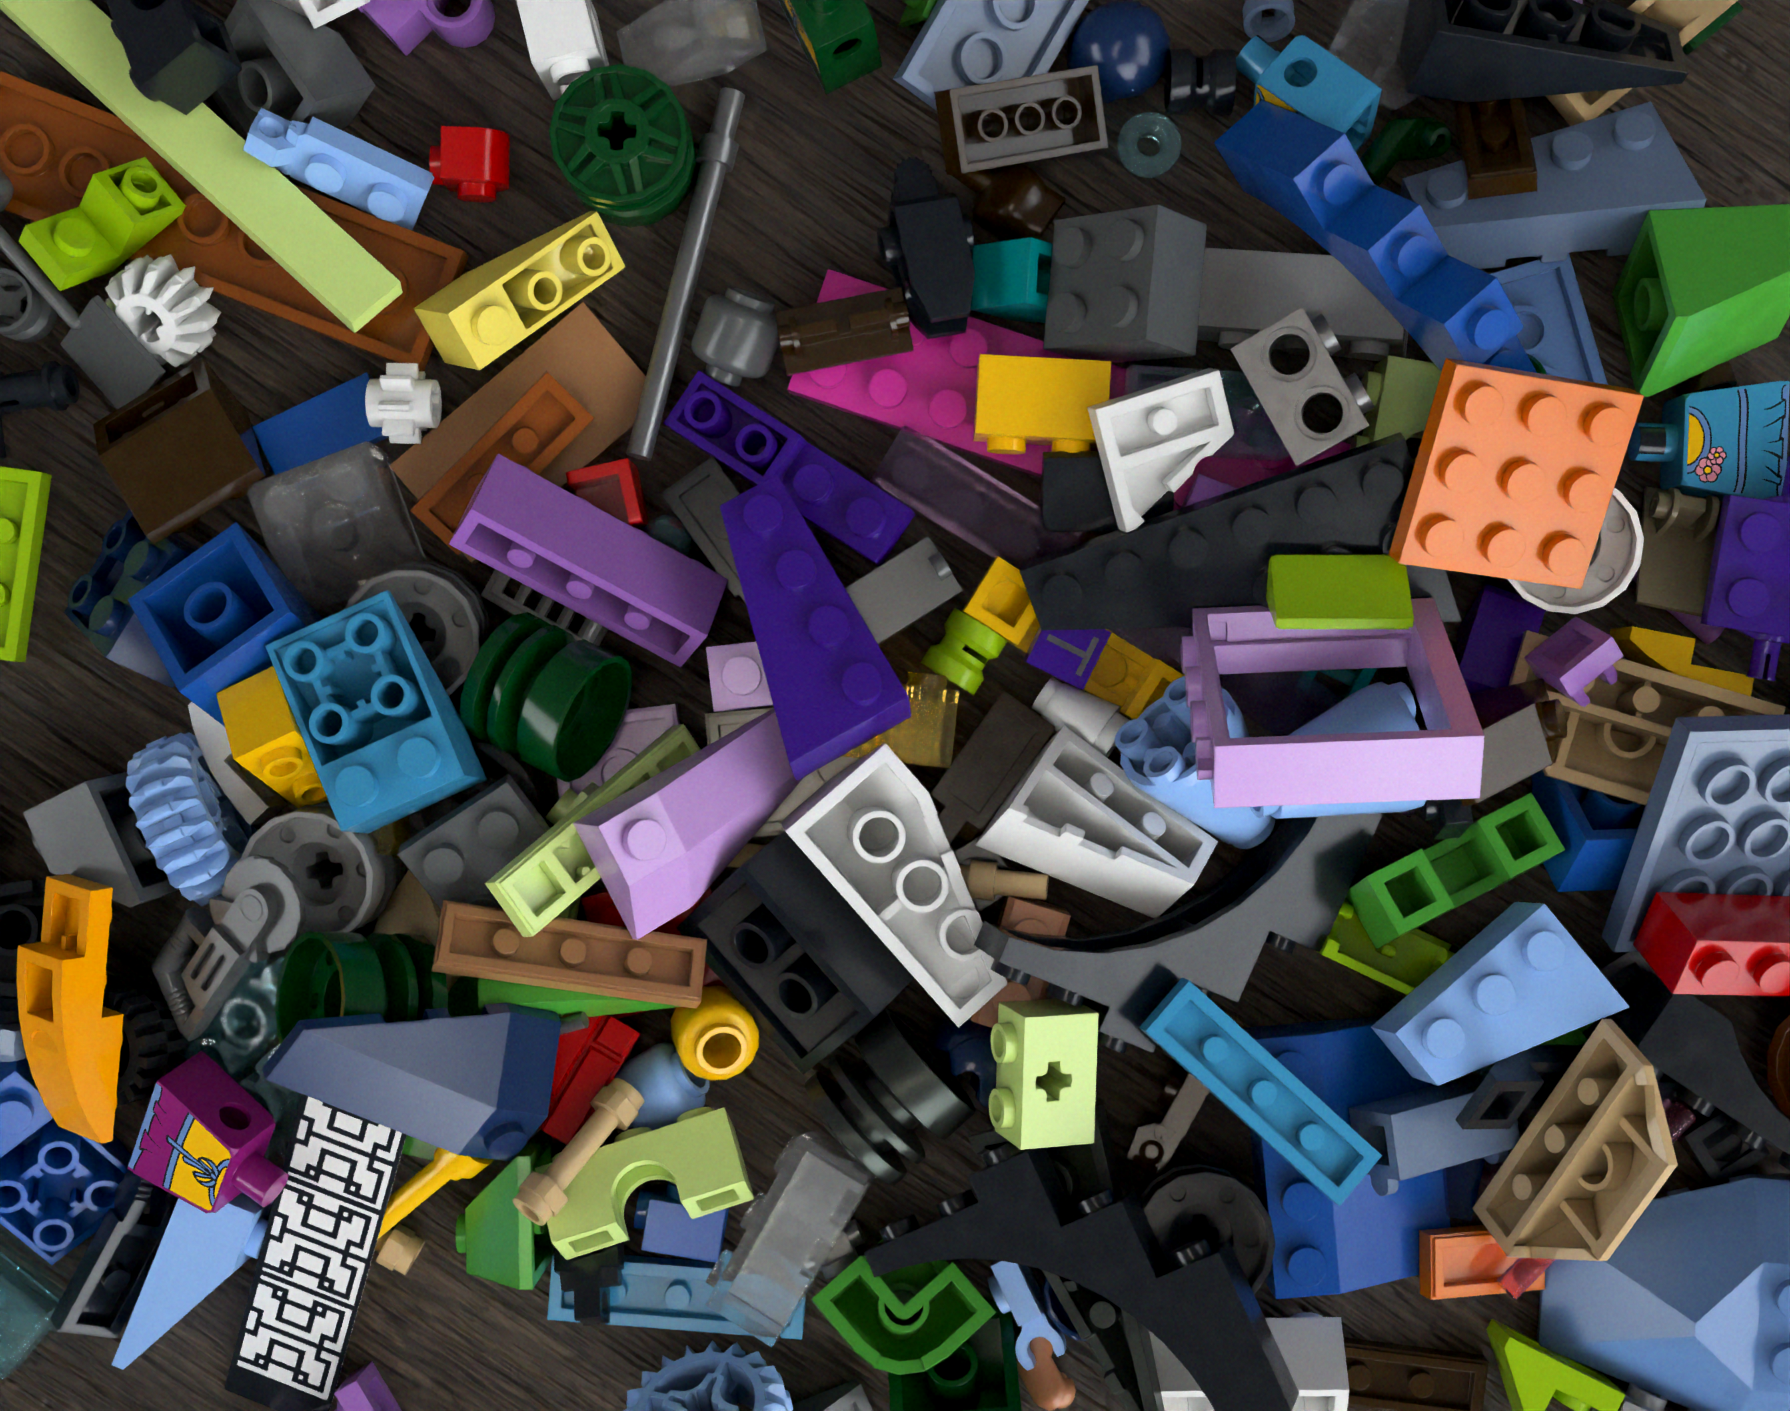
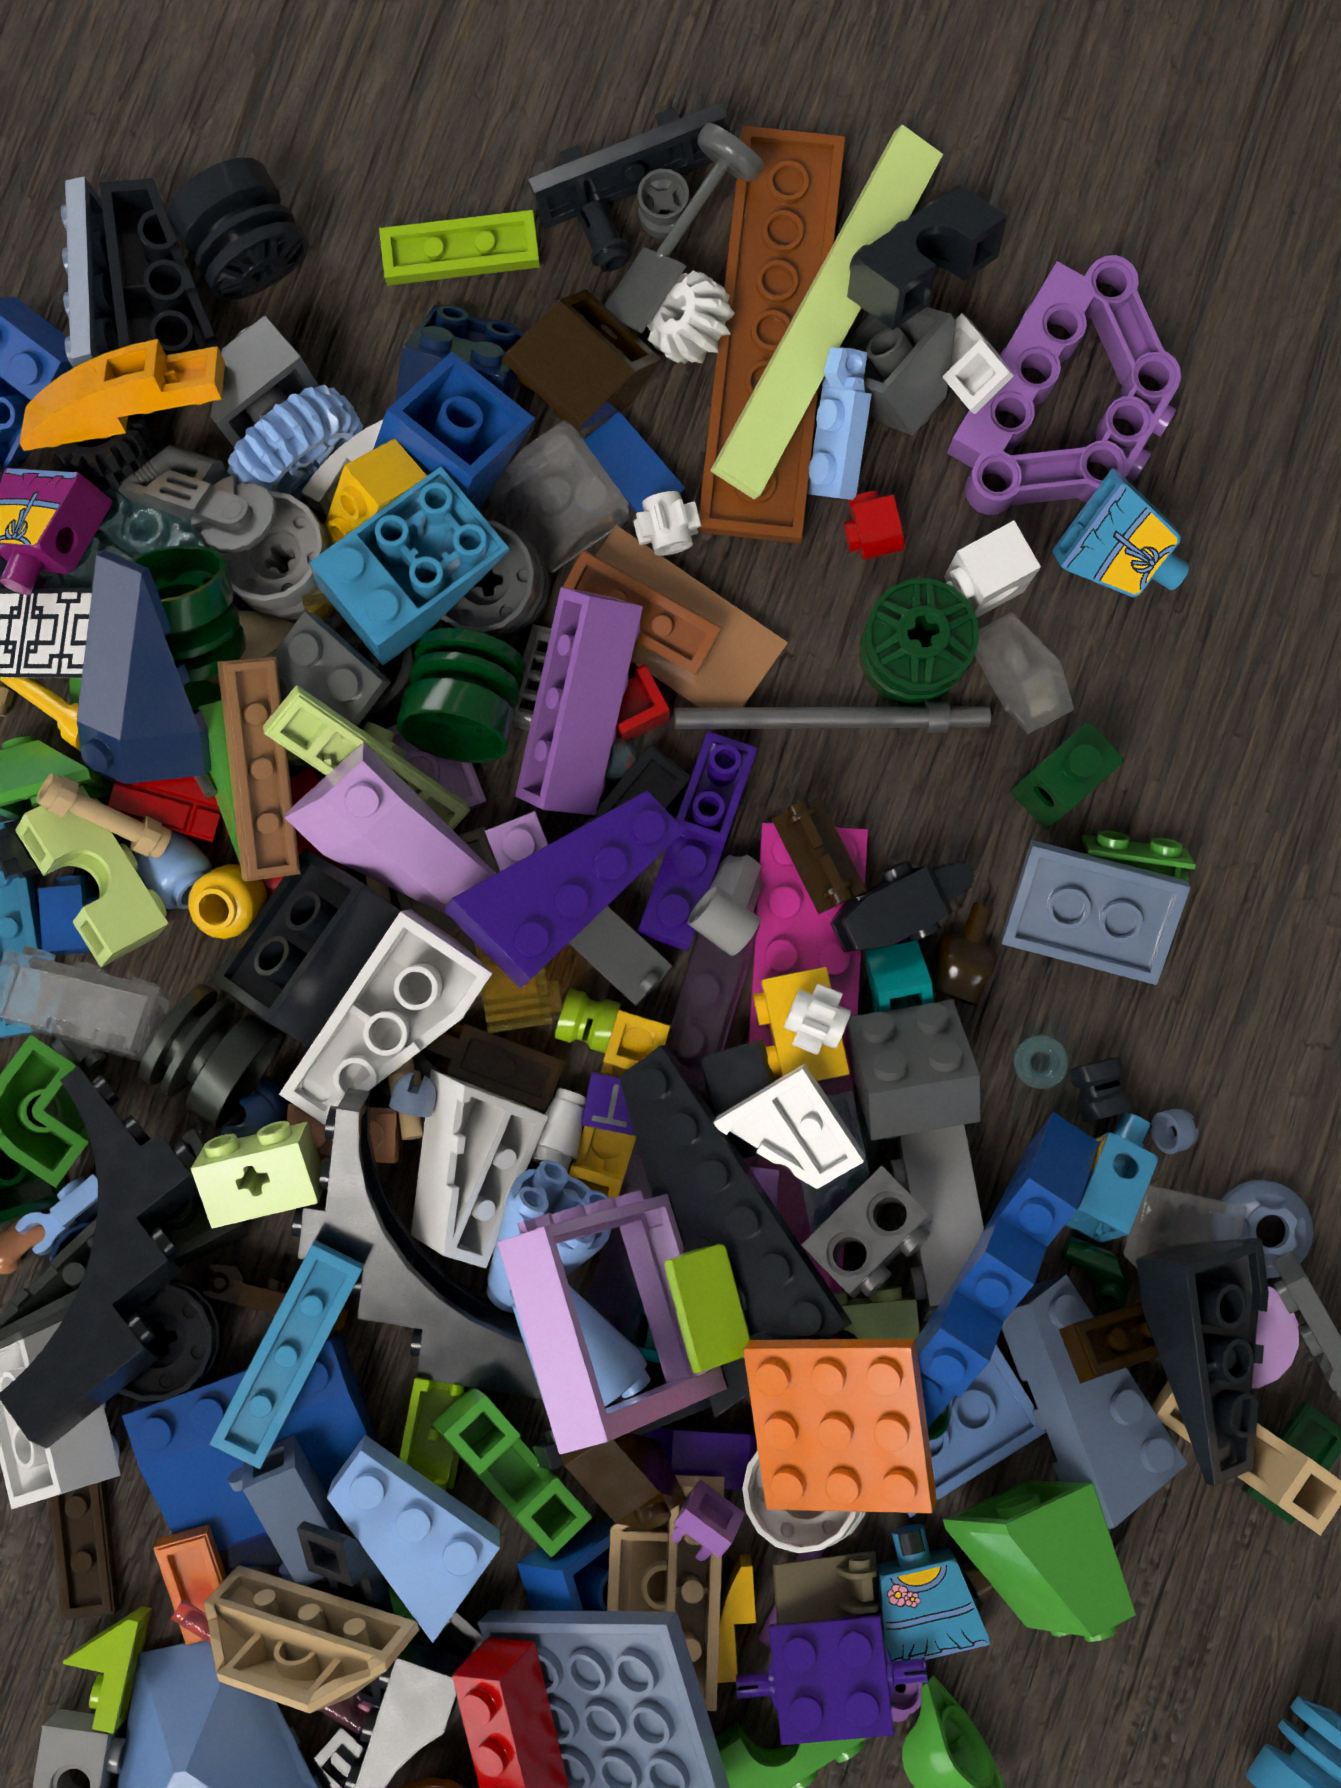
camera: 75 degrees right, 5 degrees down
(114, 220) = (746, 261): lime slope -> none
(518, 292) = (780, 590): light yellow slope -> none
(736, 335) = (793, 770): dark grey head -> none
(879, 454) = (727, 908): none -> light grey piece
(1004, 874) = (413, 1098): none -> sand blue hinge
(1021, 120) = (1027, 951): dark brown piece -> none
(1041, 377) = (817, 1019): none -> white gear
(1125, 43) = (1109, 1017): dark blue hair -> none

